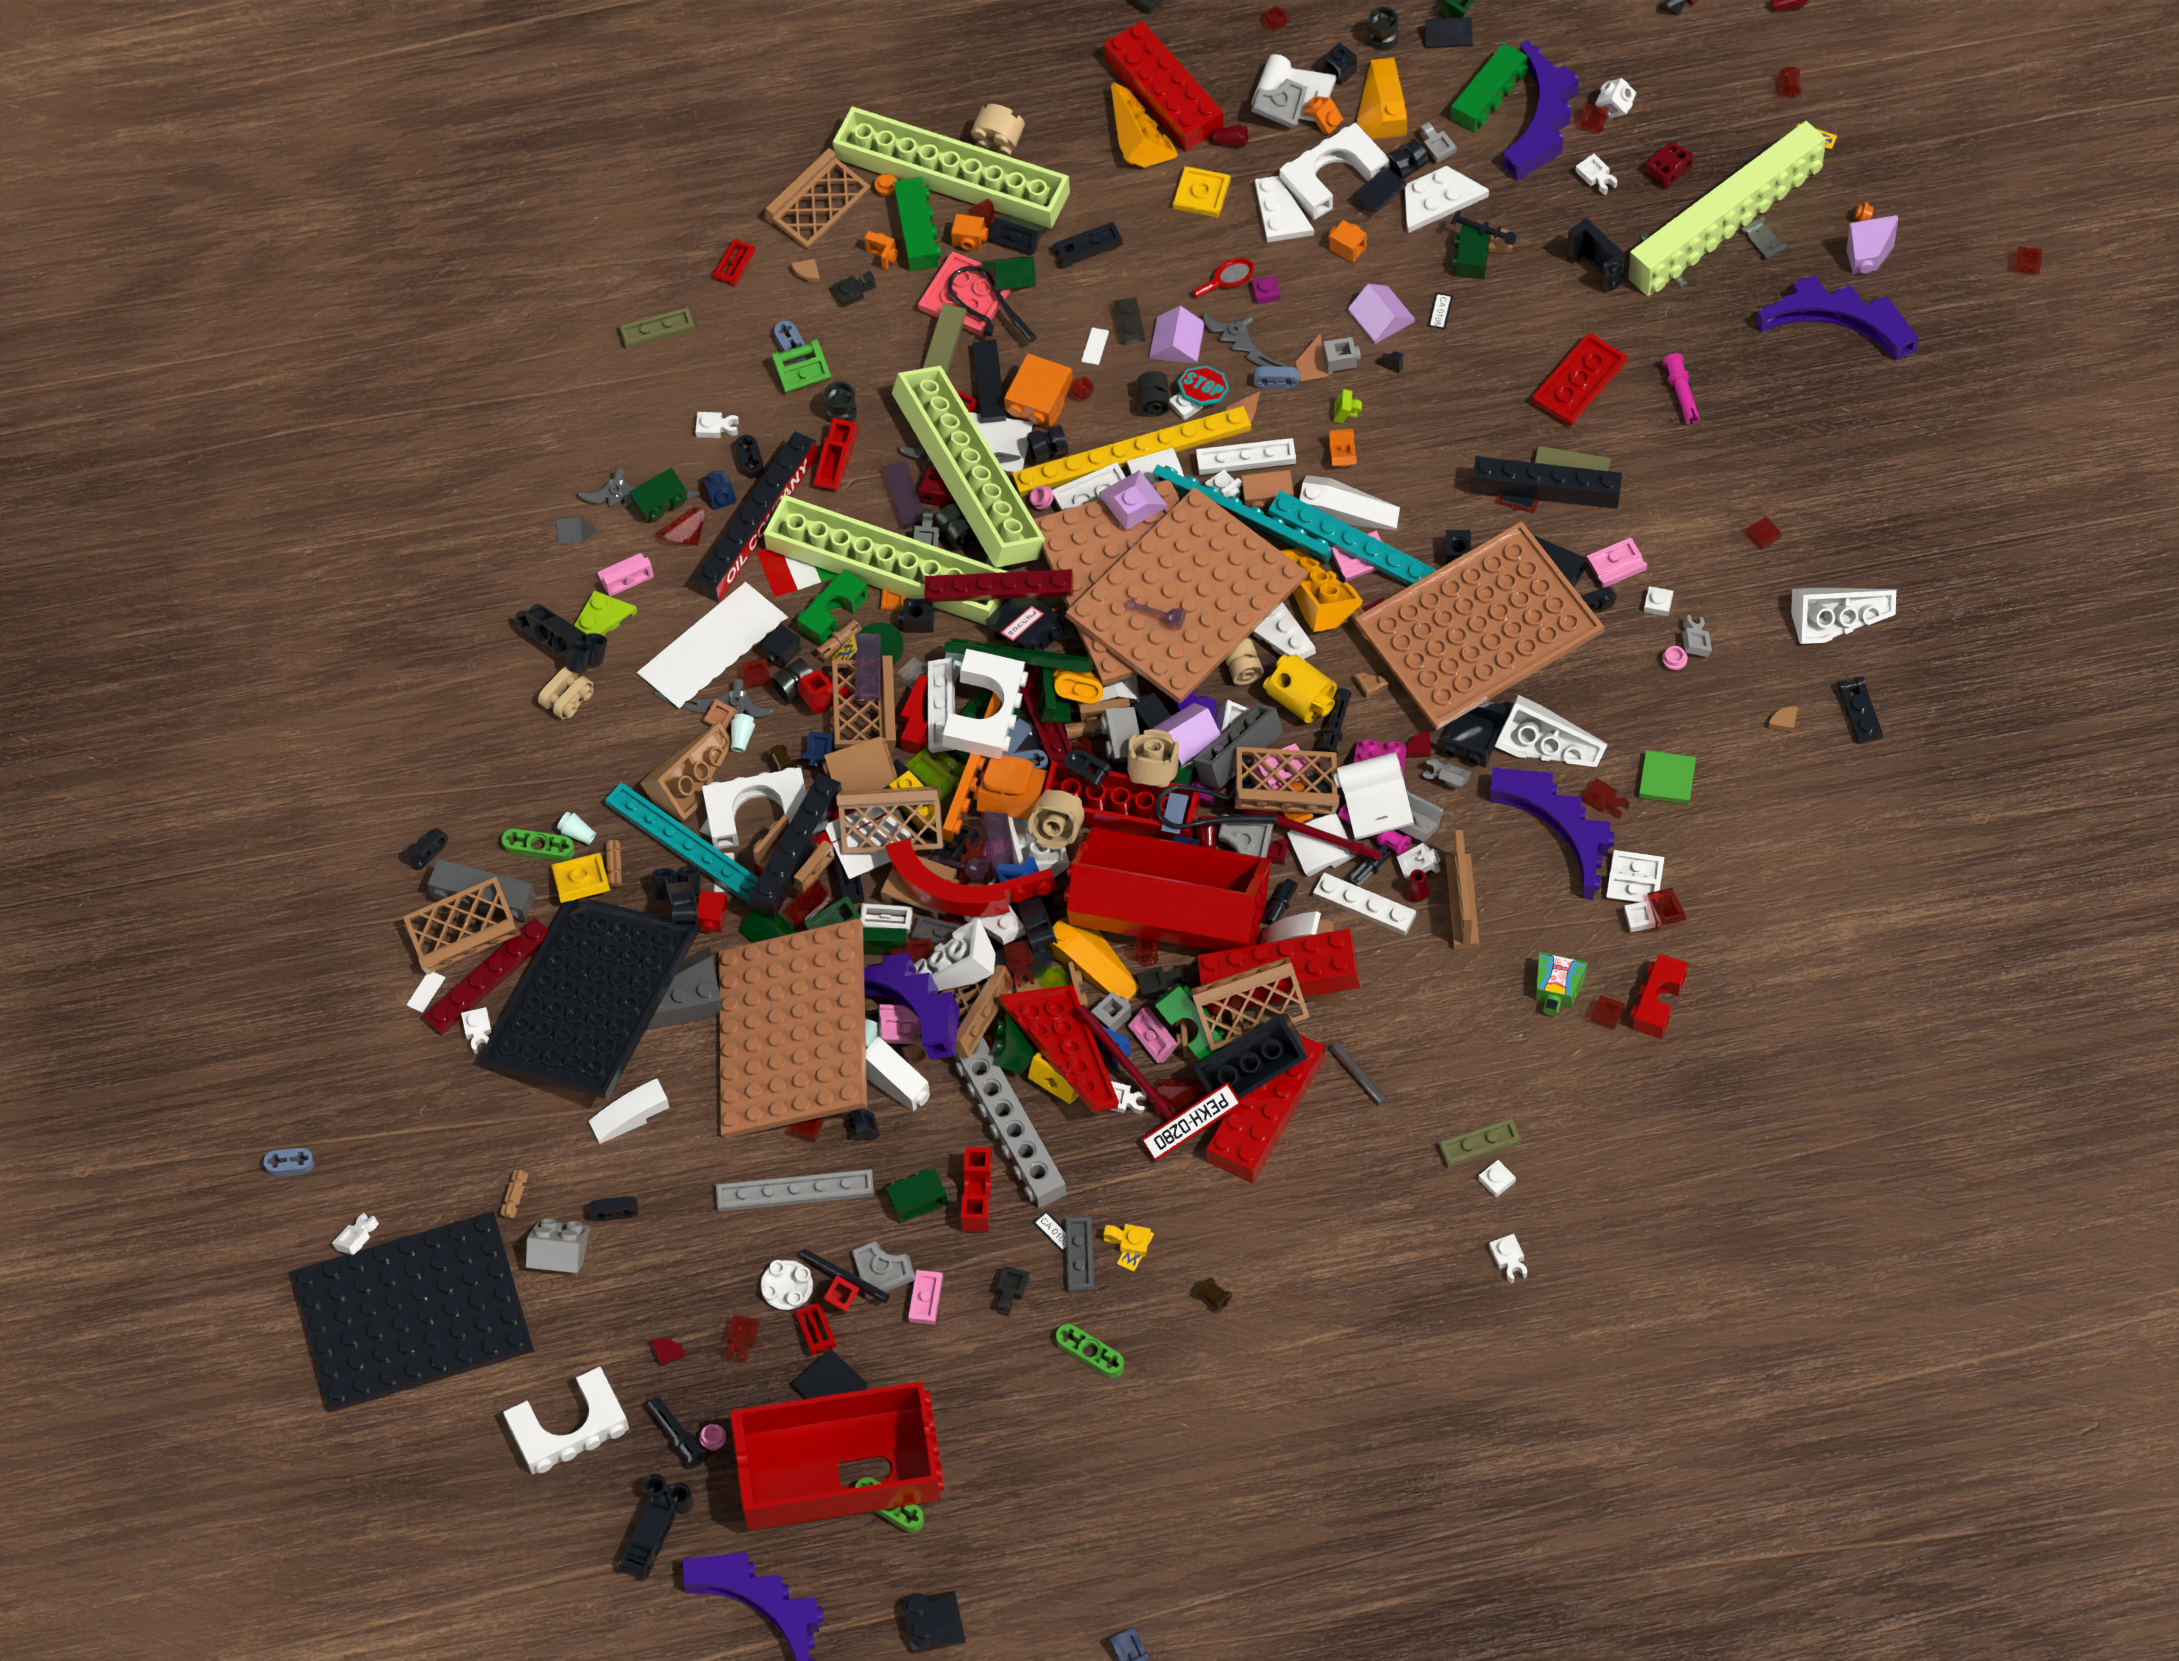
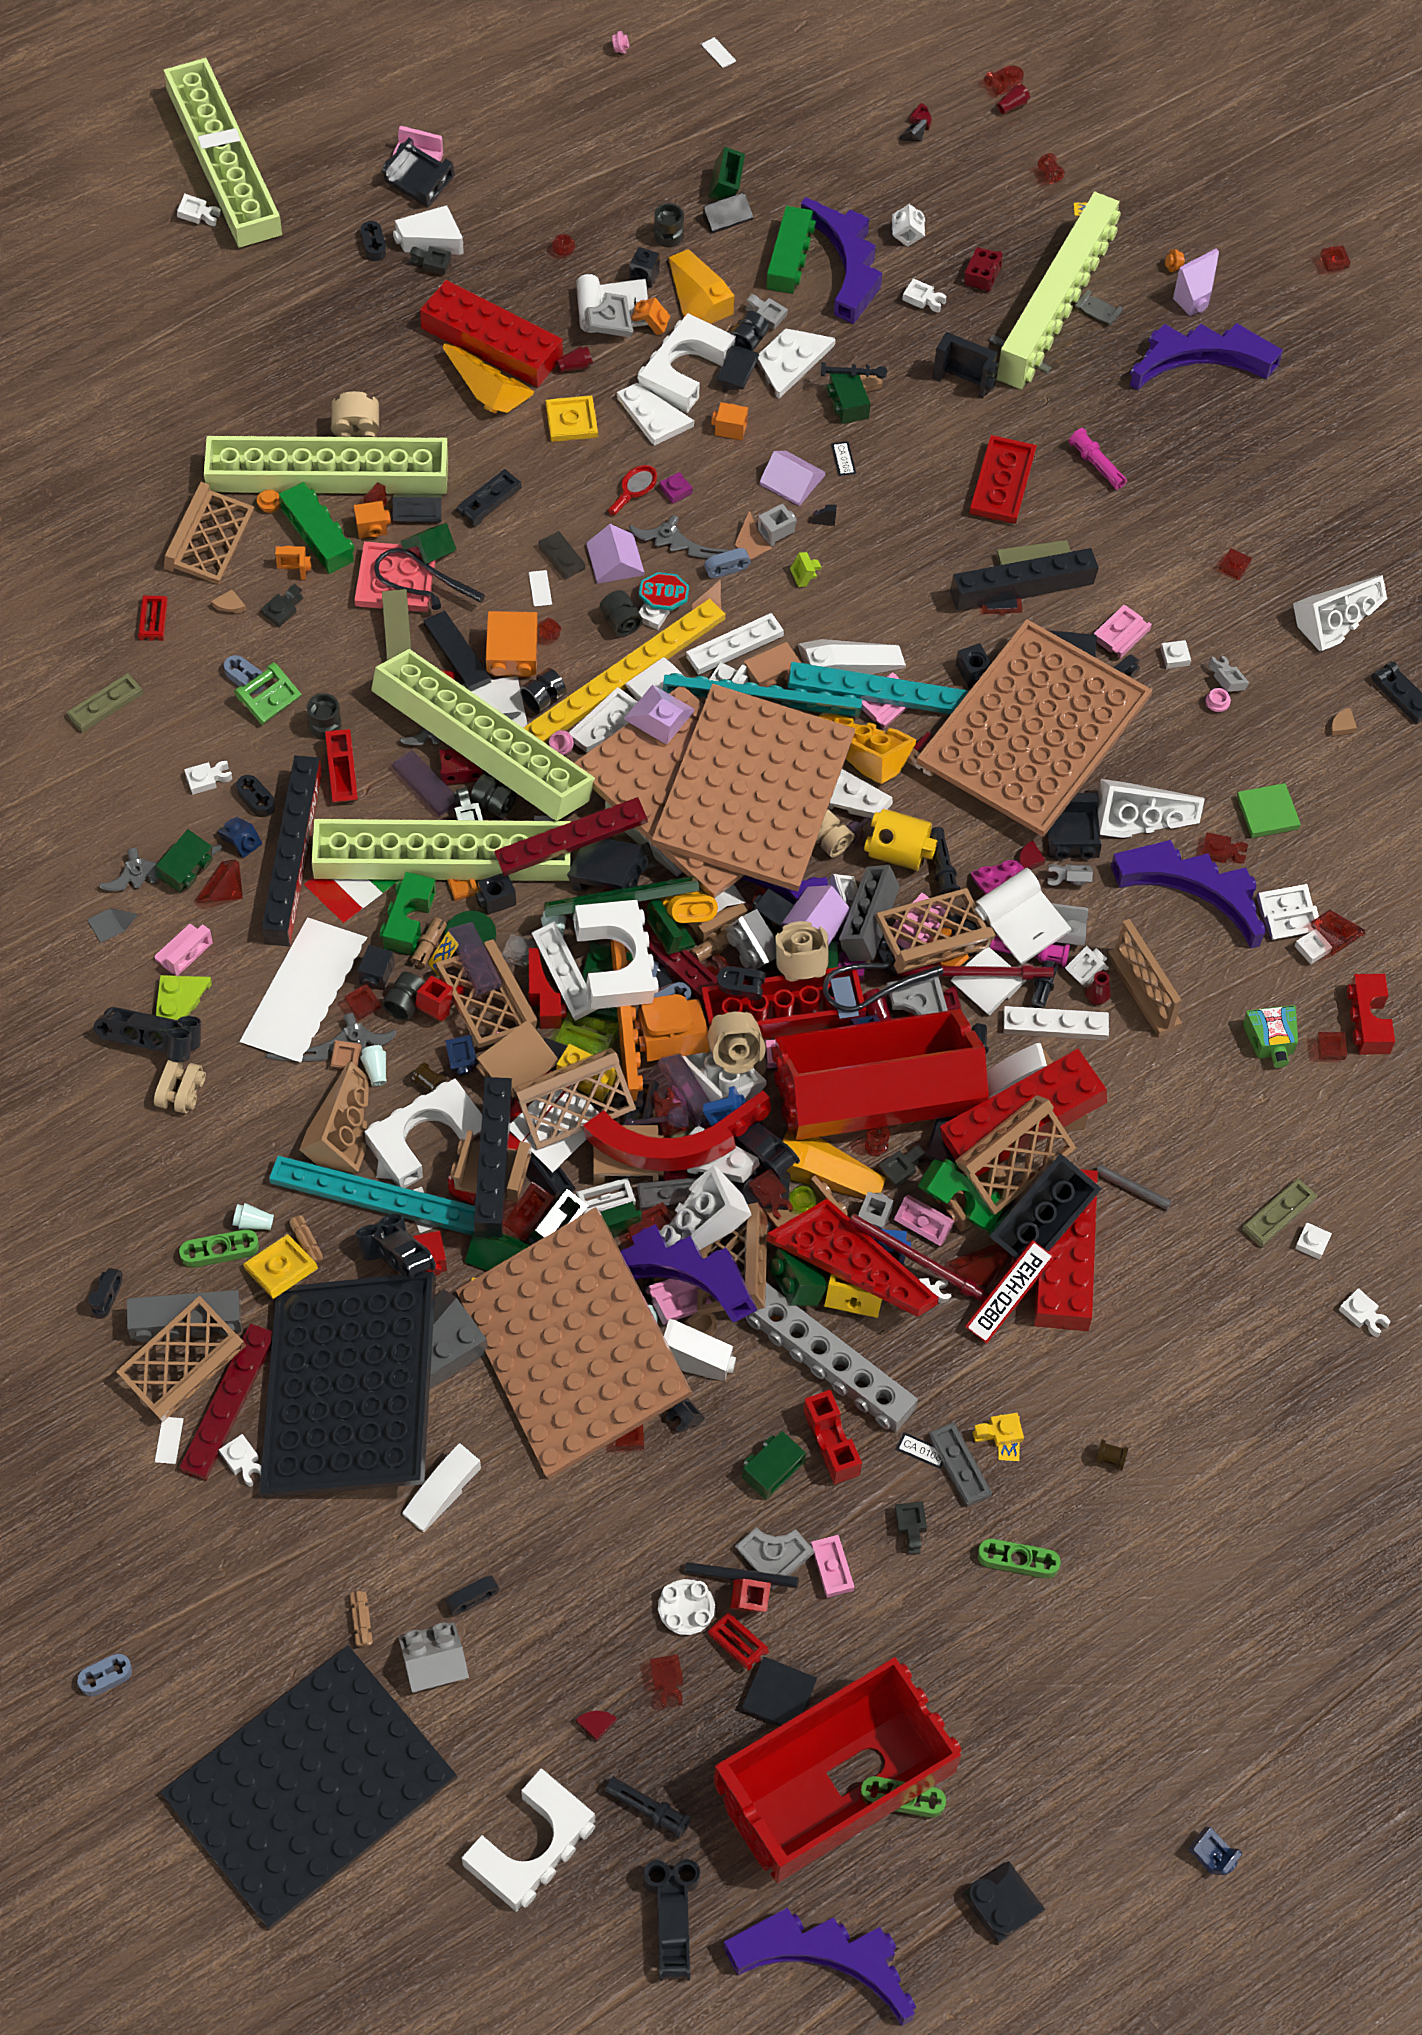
camera: 30 degrees left, 0 degrees up
(355, 1236) = (213, 1729): white plate -> none
(712, 1437) = (687, 1796): bright pink plate -> none
(795, 1190) = (646, 1506): light grey tile -> none
(1022, 623) = (607, 865): white sticker -> none
(1174, 617) = (759, 810): hinge -> none
(1342, 447) = (820, 608): orange bracket -> none
(1370, 684) = (955, 815): medium nougat tile -> none
(1594, 117) = (896, 247): clear red plate -> none

